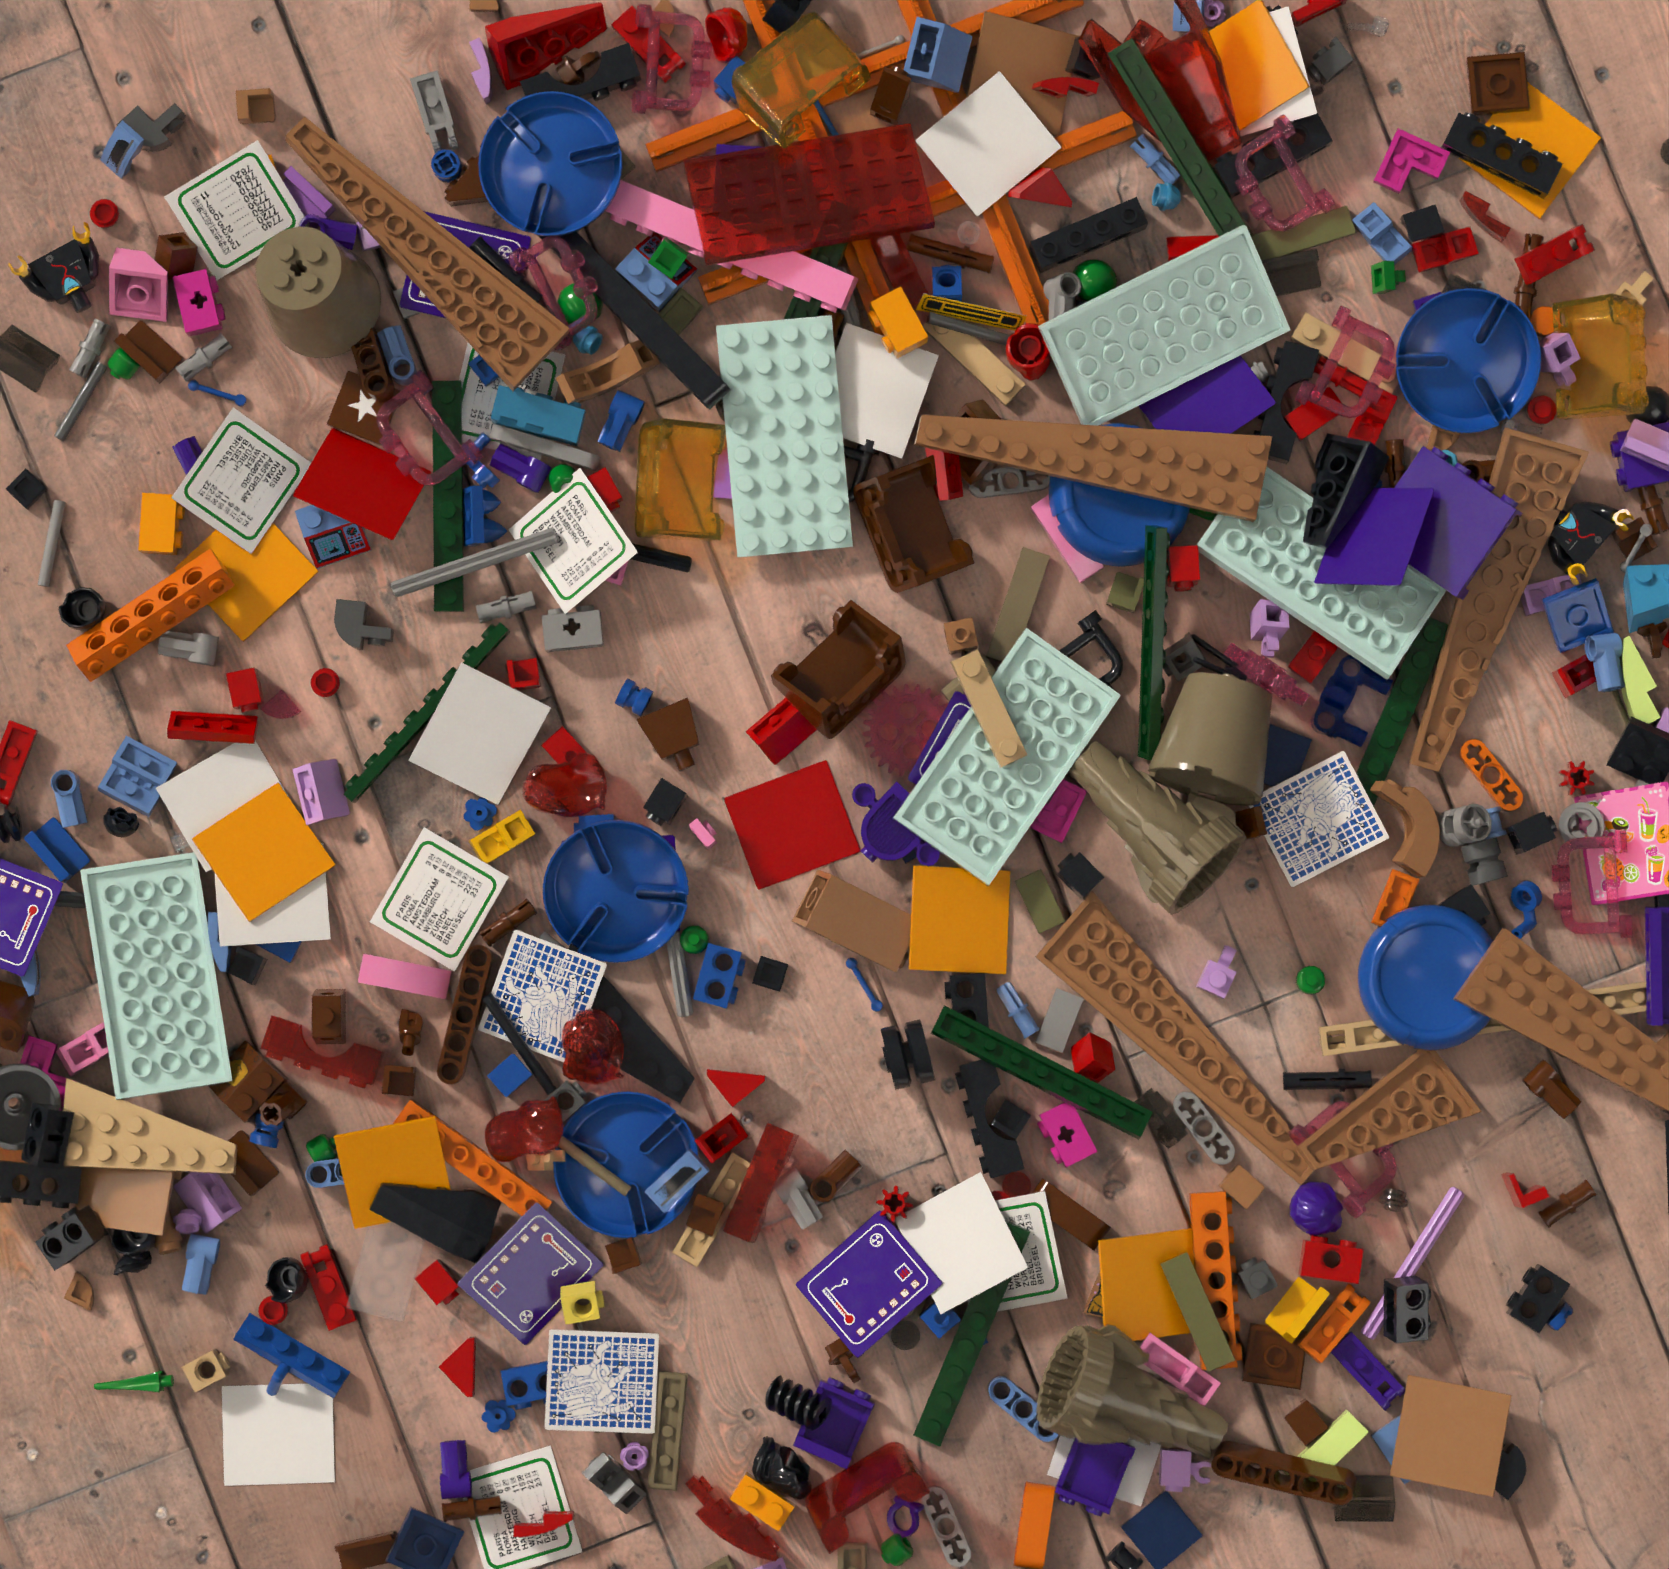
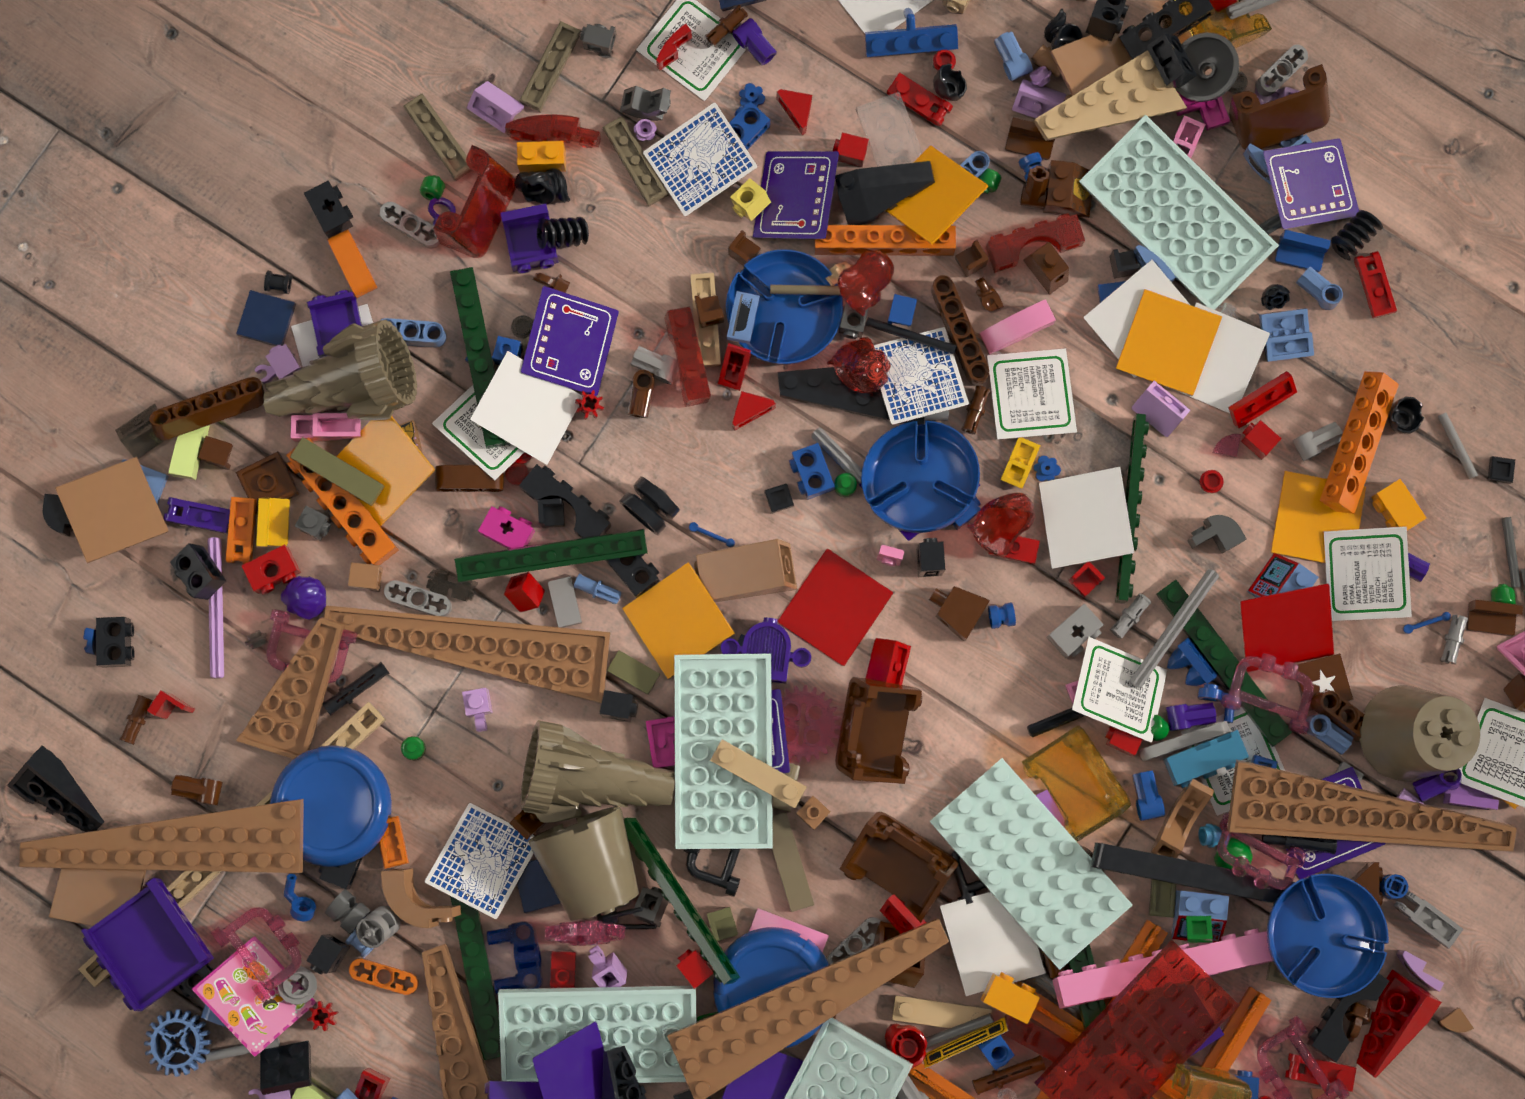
camera: 140 degrees right, 5 degrees down
(188, 289) = (1498, 674): dark pink brick -> none

